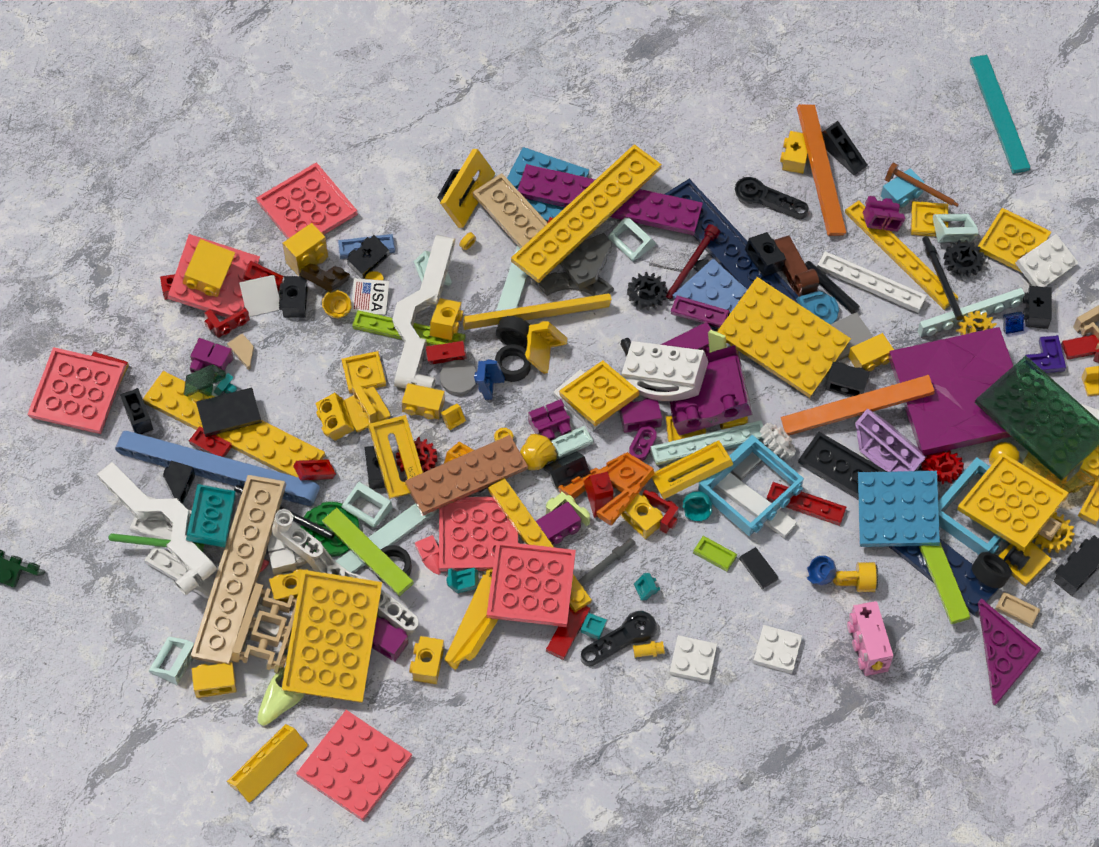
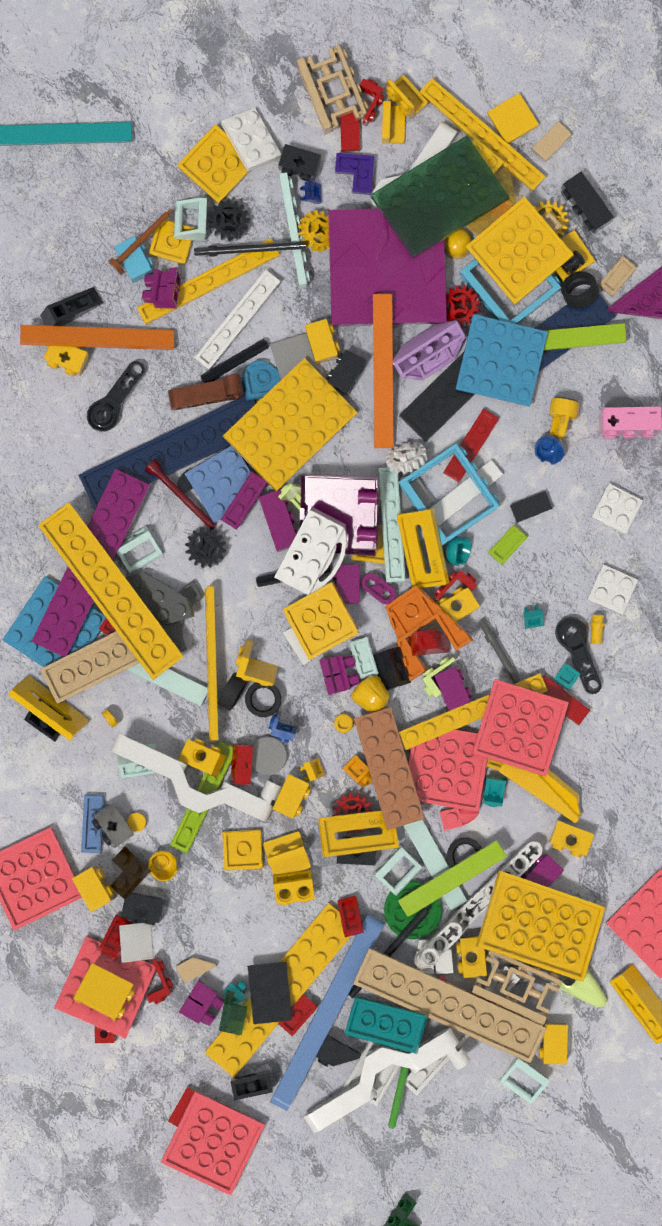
camera: 75 degrees left, 25 degrees up
(370, 296) = (155, 829): sticker -> none
(765, 254) = (201, 422): black brick -> none

